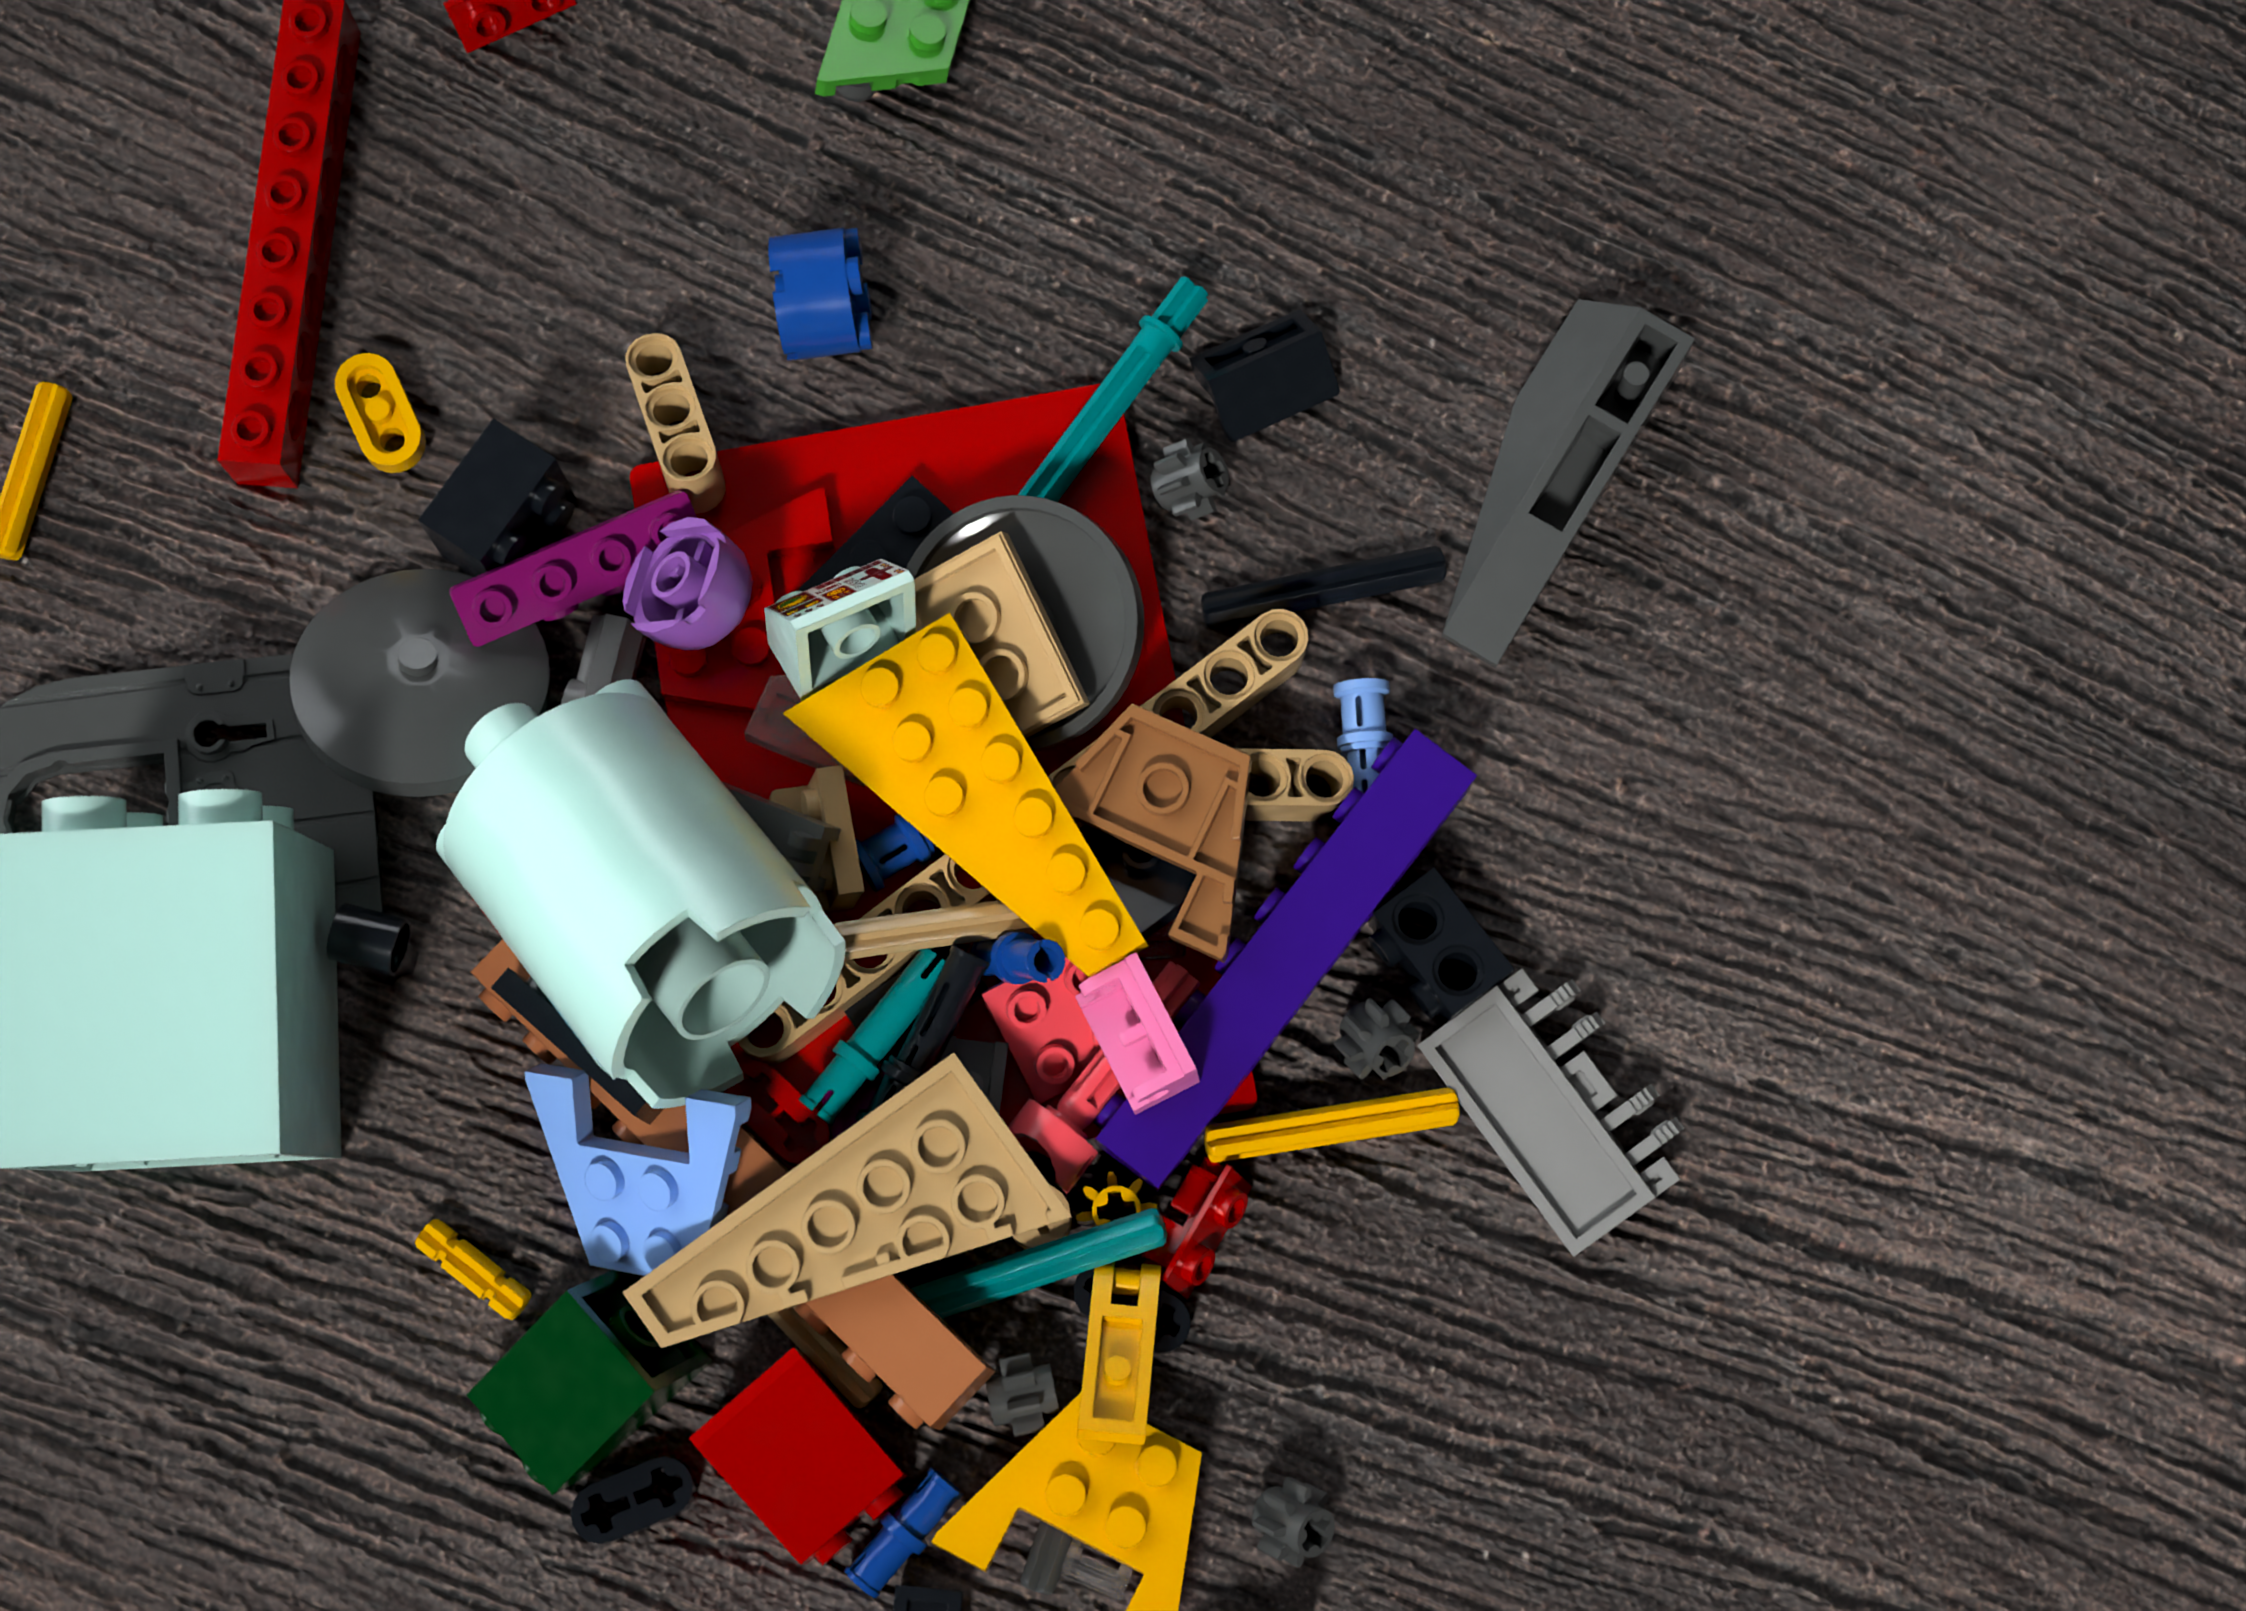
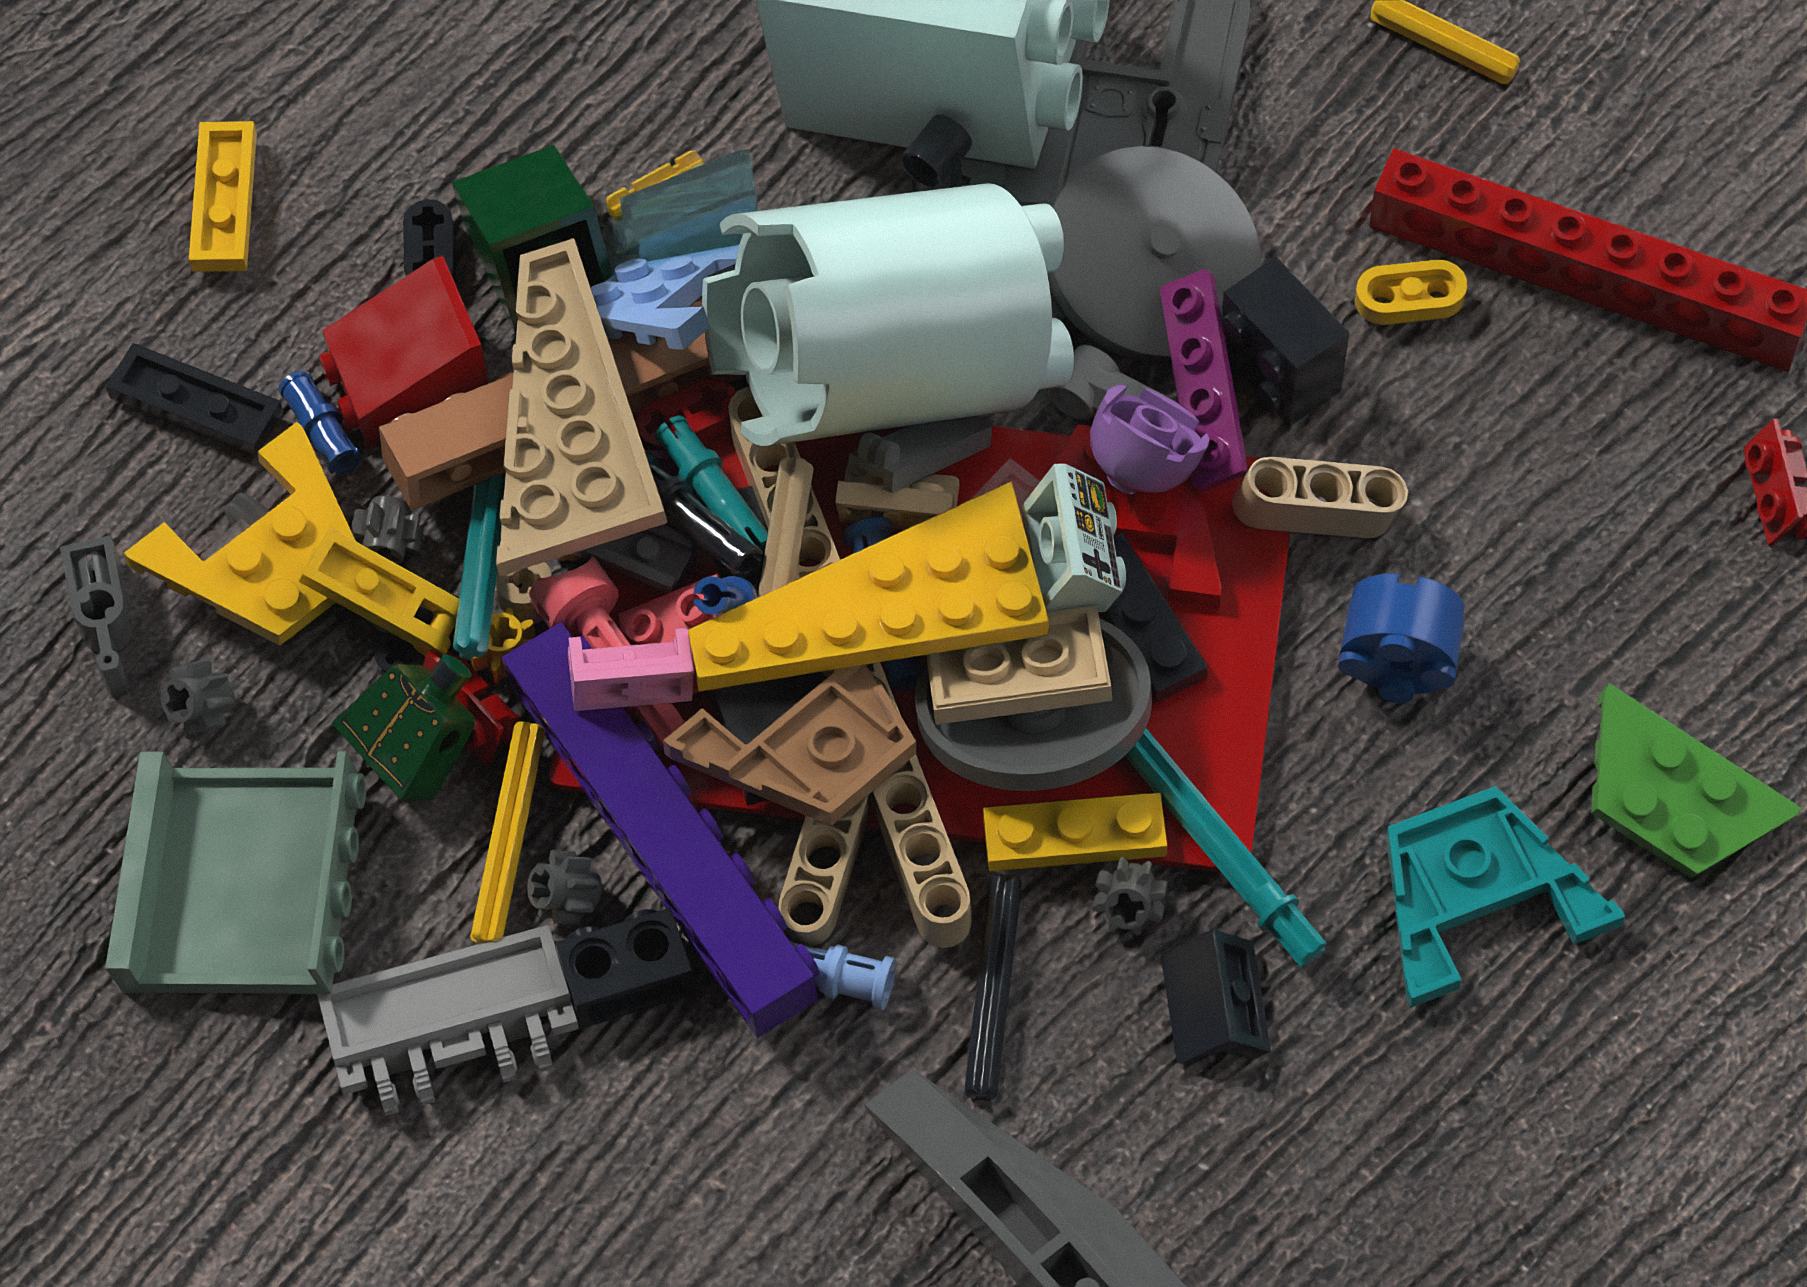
camera: 110 degrees right, 15 degrees down
(517, 1201) = (686, 210): none -> clear light blue slope
(1042, 184) = (1470, 864): none -> teal wing
(1122, 508) = (1074, 831): none -> yellow plate
(1256, 1268) = (411, 726): none -> dark green torso
(1482, 1389) = (235, 878): none -> sand green panel

